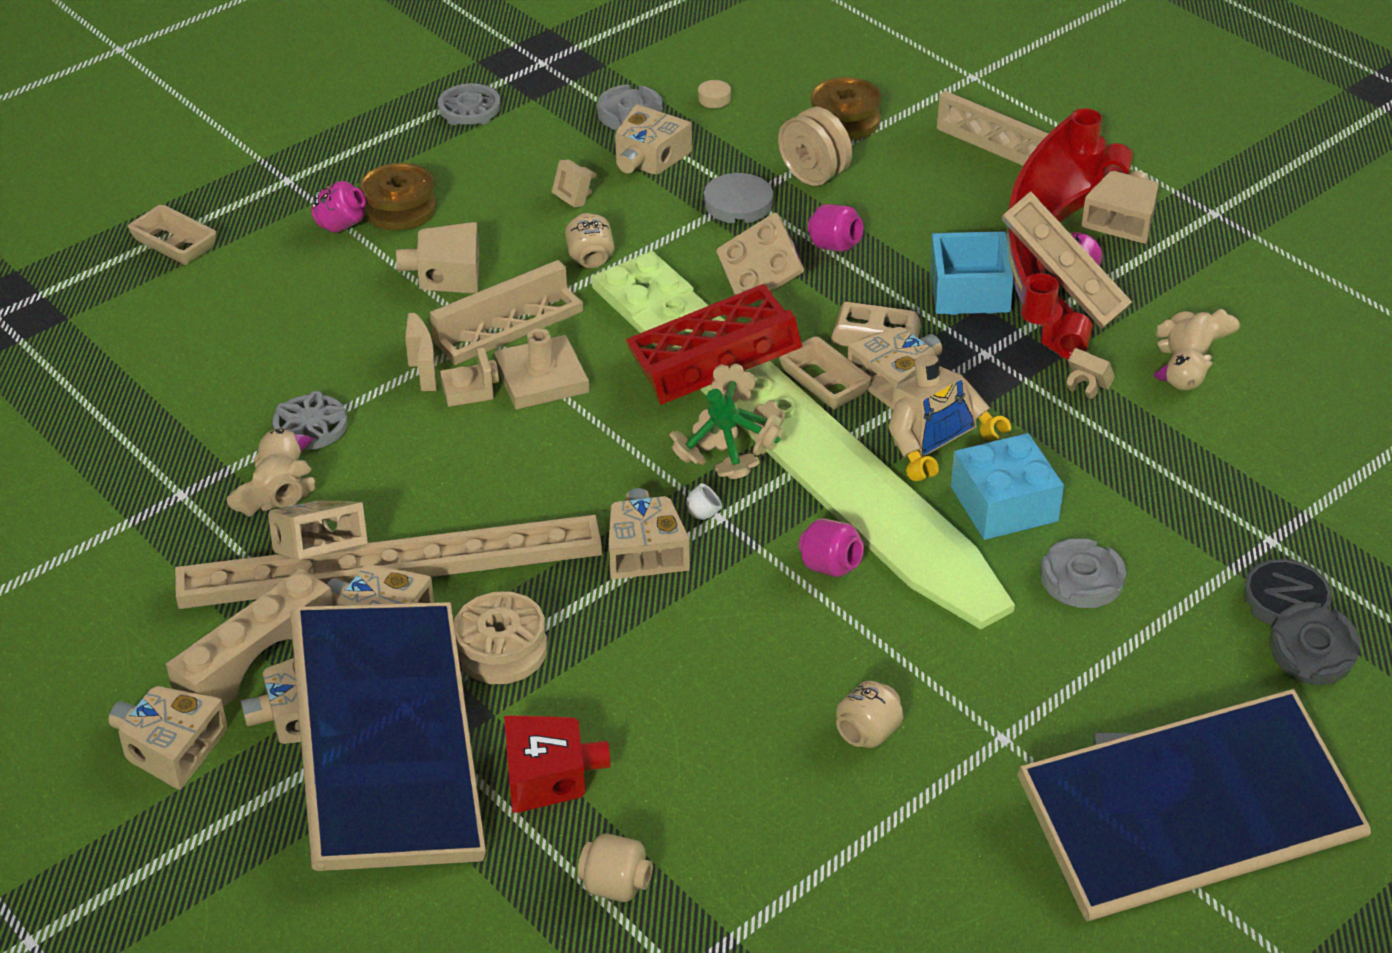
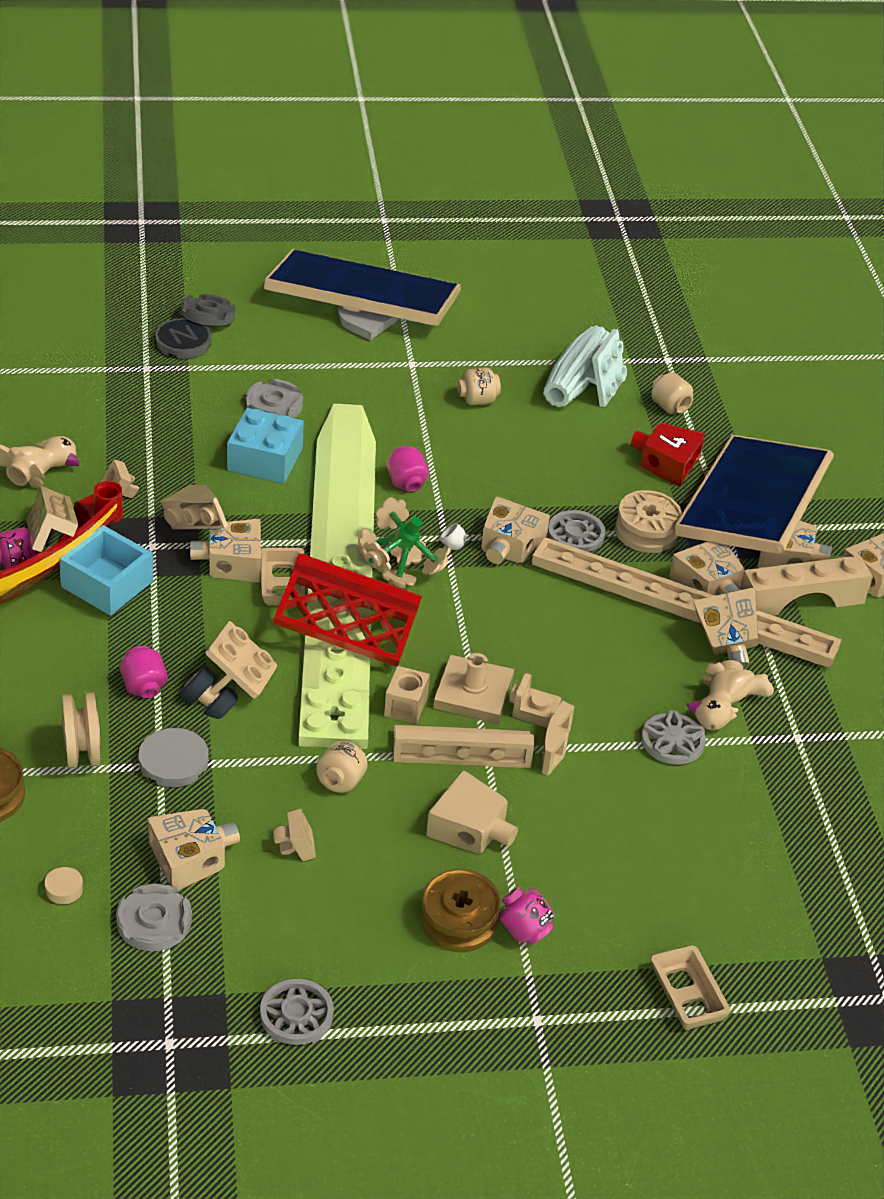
camera: 150 degrees left, 0 degrees up
(579, 593) = (576, 530): none -> light grey wheel
(592, 321) = (406, 695): none -> tan brick
(762, 821) = (589, 358): none -> light aqua plate
(850, 332) = (193, 596): tan piece -> none
(934, 411) = (258, 494): torso -> none
(961, 350) = (194, 509): none -> tan slope

